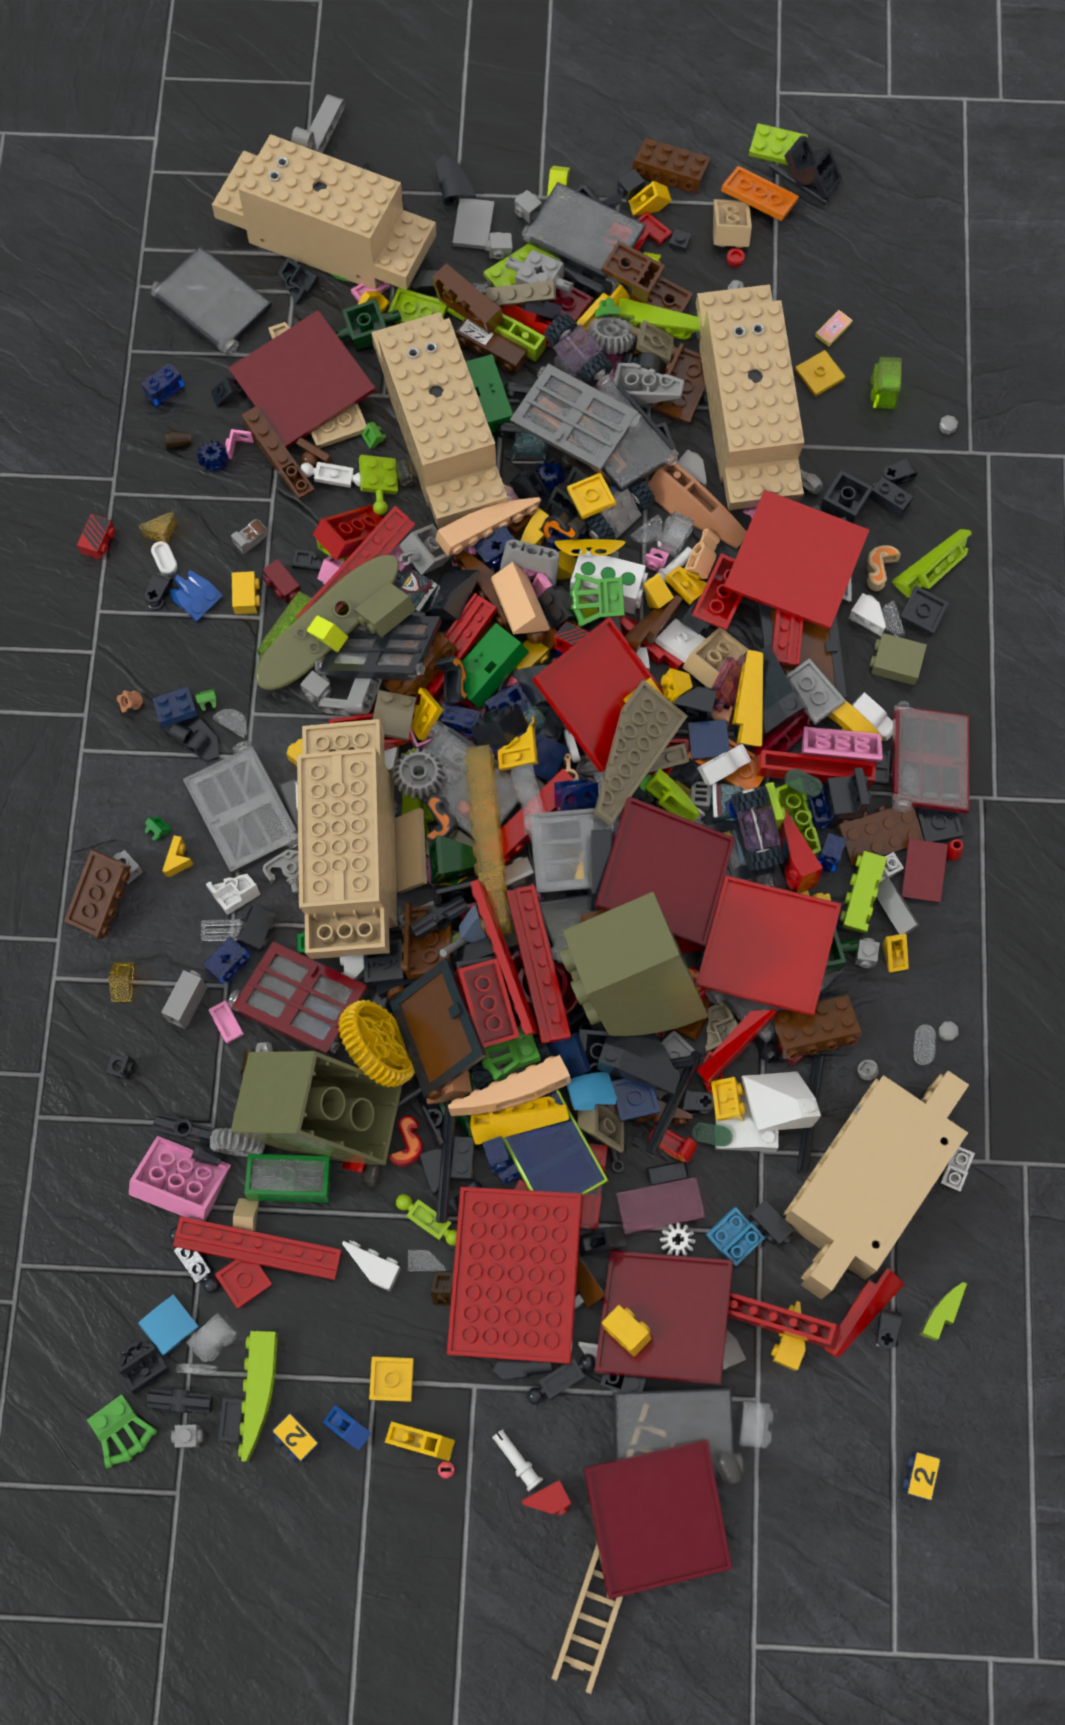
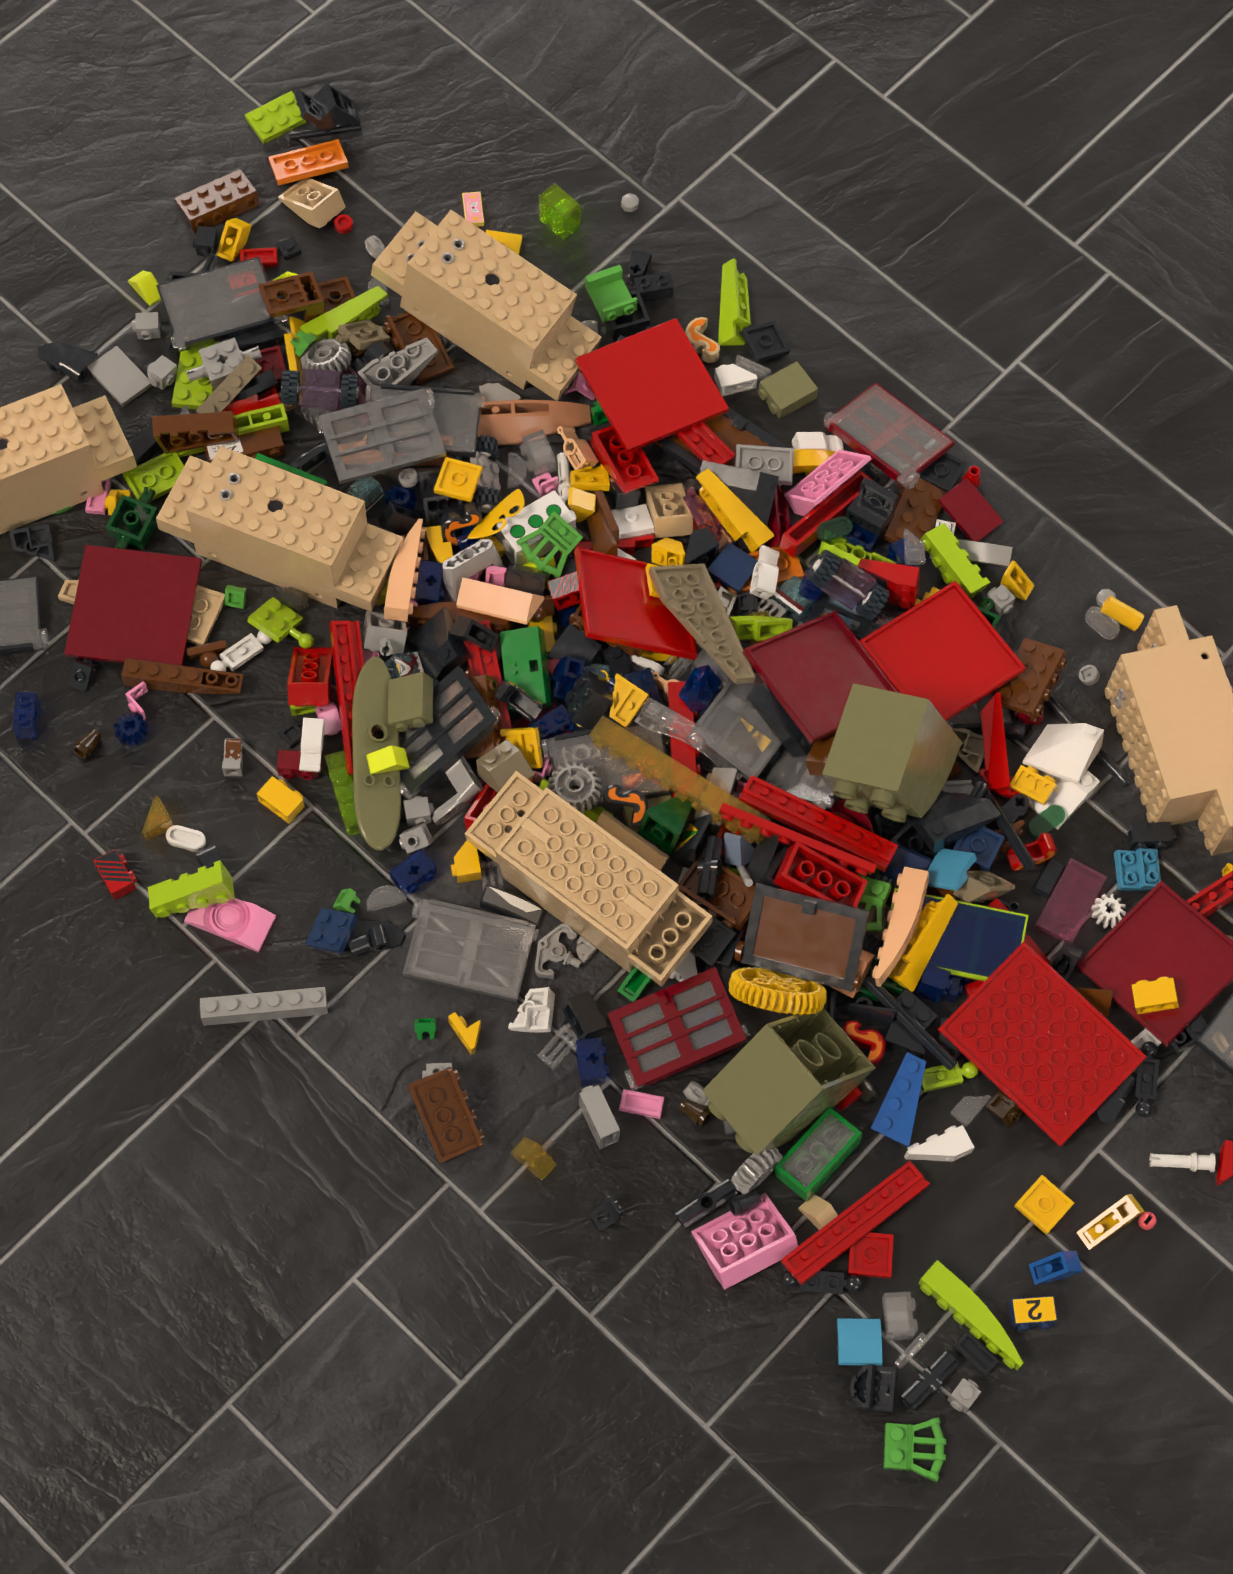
camera: 55 degrees left, 5 degrees down
(81, 710) = (263, 1006): none -> light grey brick
(122, 593) = (192, 891): none -> lime wedge
(129, 700) = (292, 960): nougat brick -> none
(130, 636) = (234, 921): none -> bright pink slope
(194, 595) = (244, 839): blue plate -> none
(259, 717) = (416, 863): none -> clear blue brick
(292, 702) = (415, 838): none -> light grey brick
(298, 575) = (312, 744): none -> white piece
(372, 1208) = (900, 1104): none -> blue wedge
(473, 606) = (474, 633): none -> black slope
(566, 464) = (408, 477): none -> light grey tile
(839, 852) = (913, 549): none -> clear tile
(848, 471) = (610, 294): none -> bright green panel
(944, 1052) = (1122, 613): none -> yellow pin

